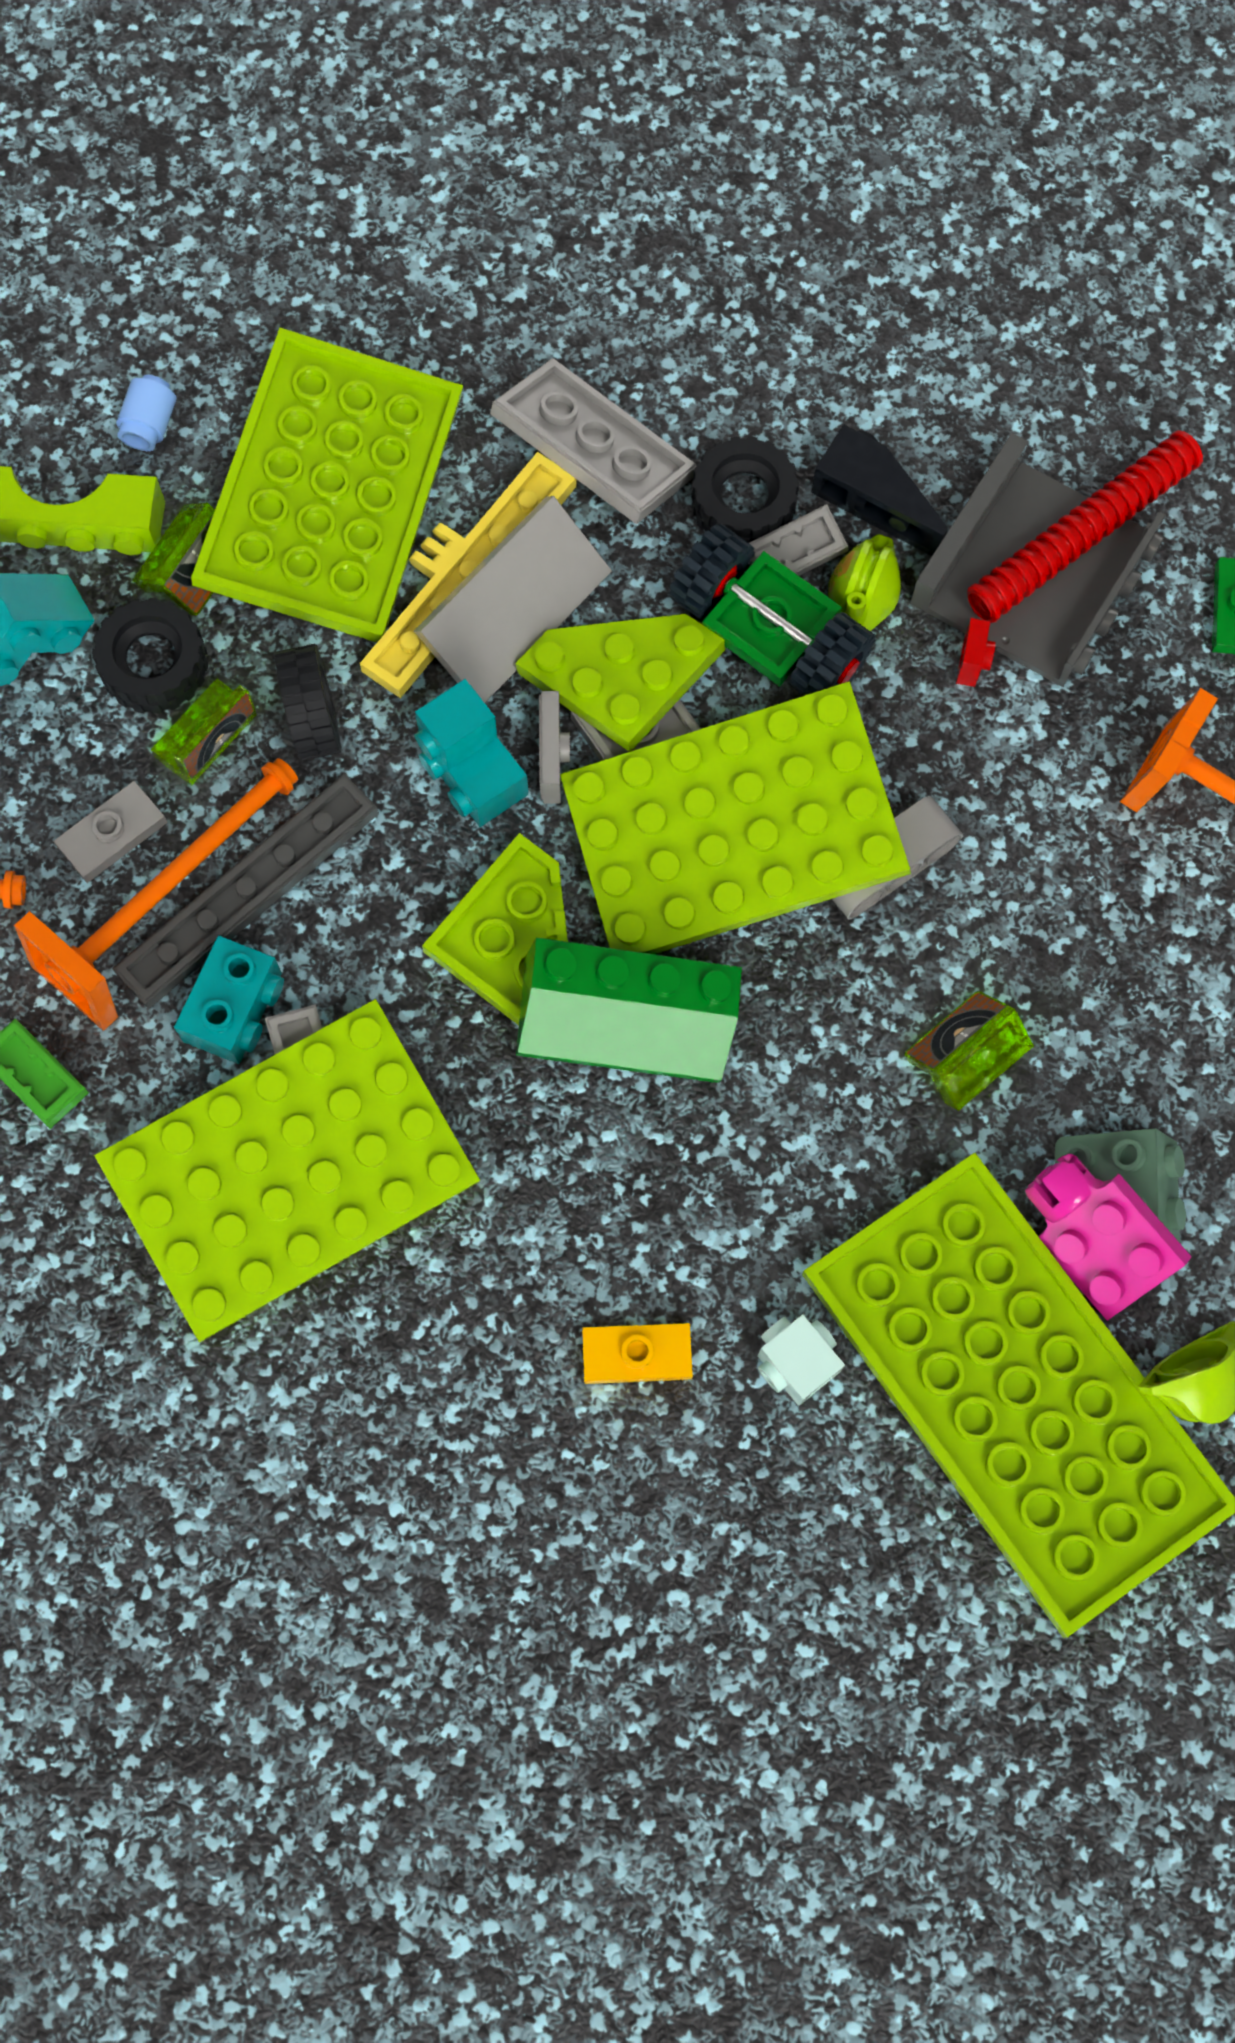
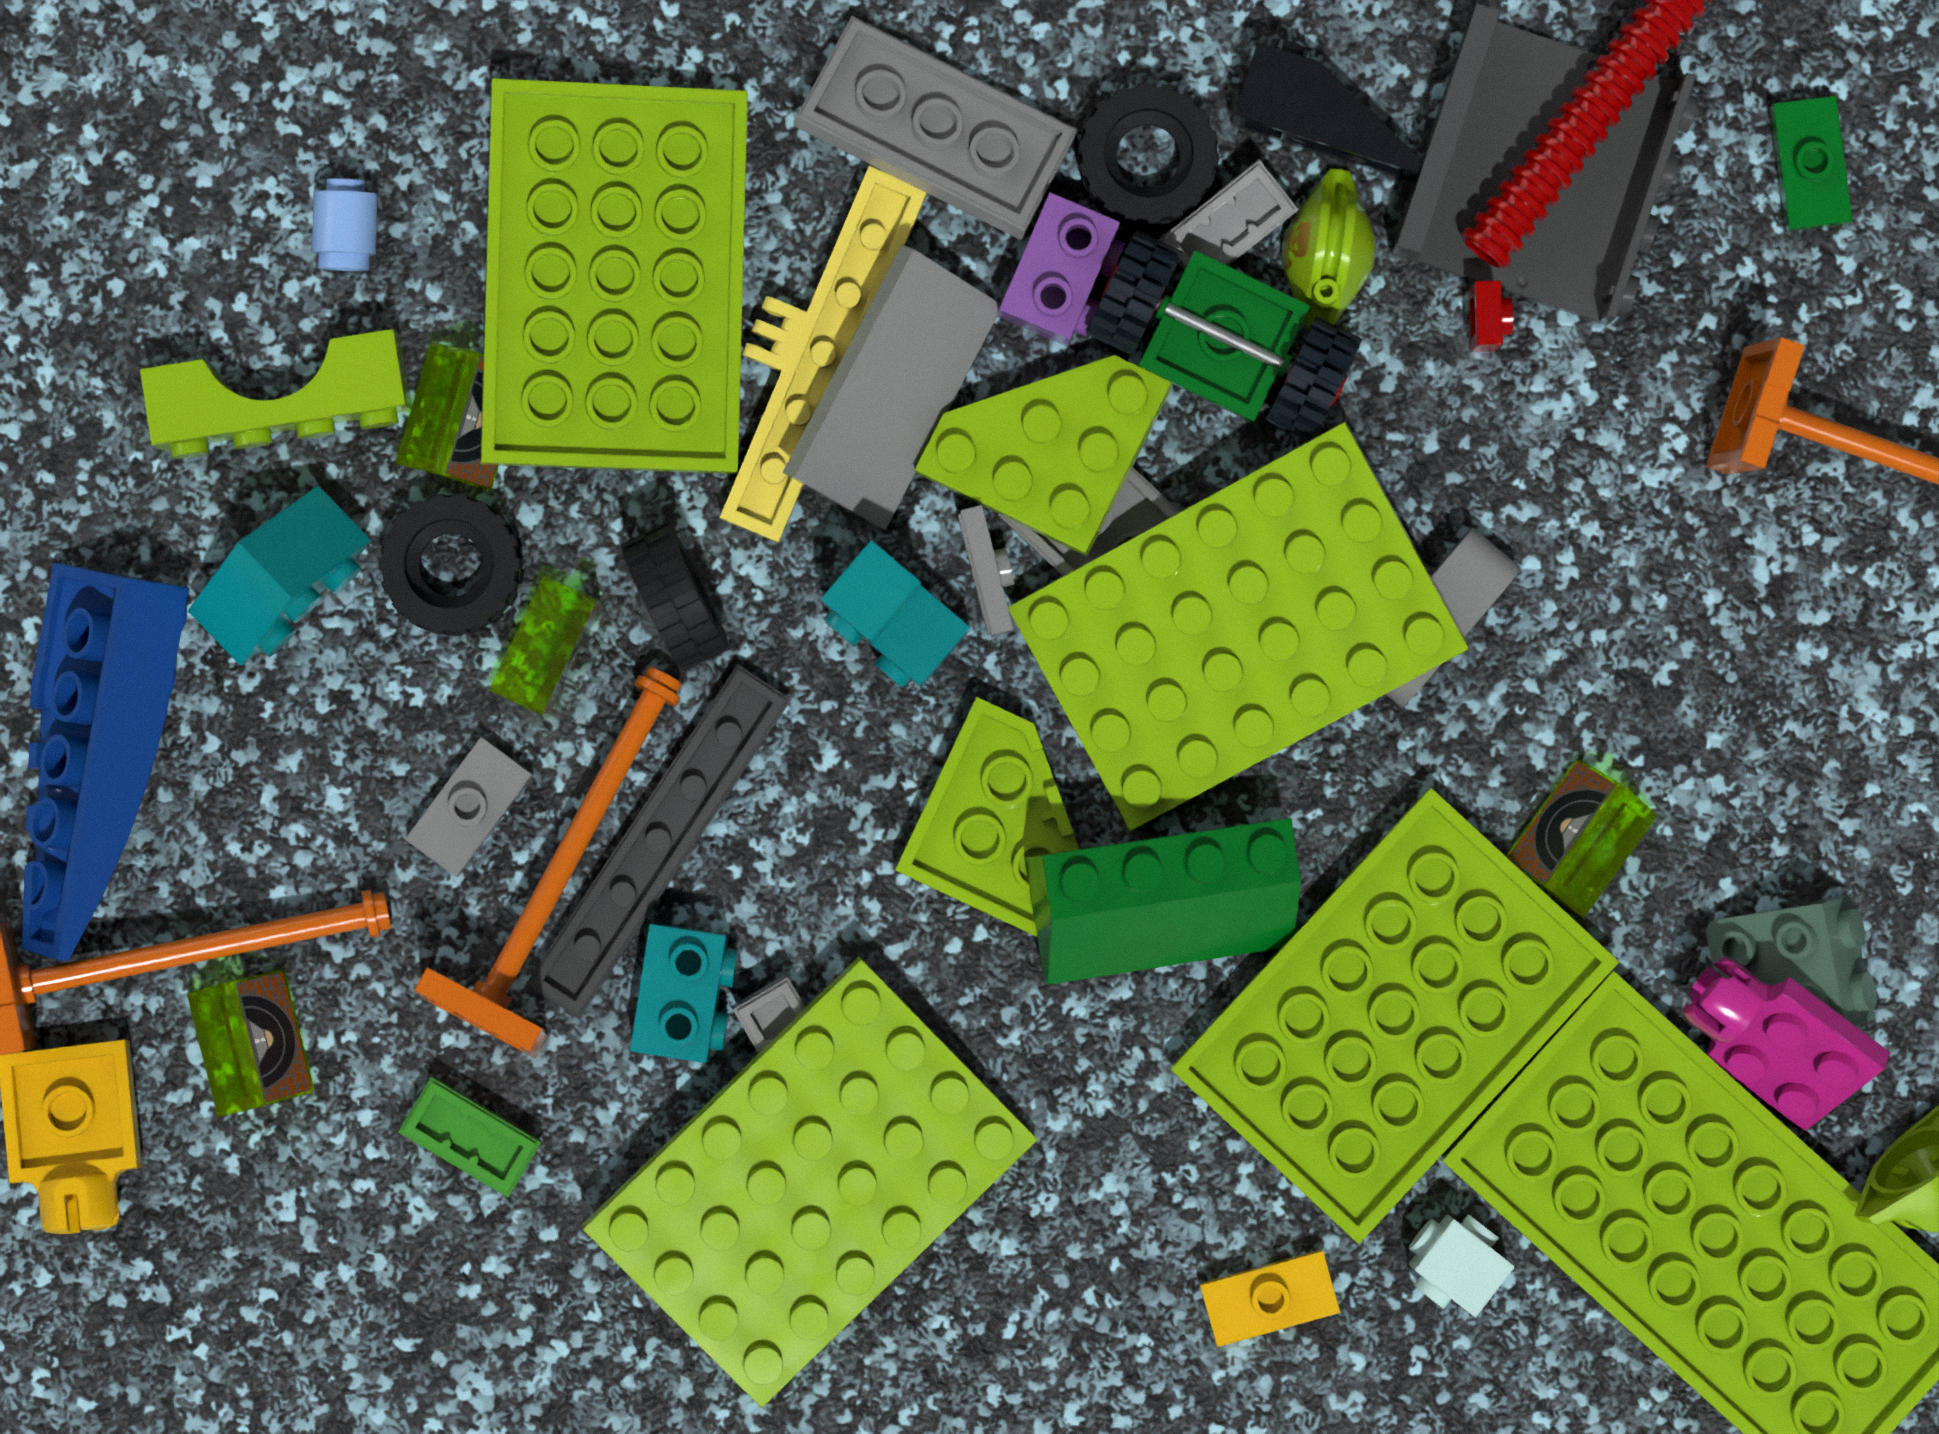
camera: 15 degrees left, 15 degrees up
(655, 550) = (1061, 269): none -> medium lavender brick
(788, 1150) = (1394, 1015): none -> lime plate

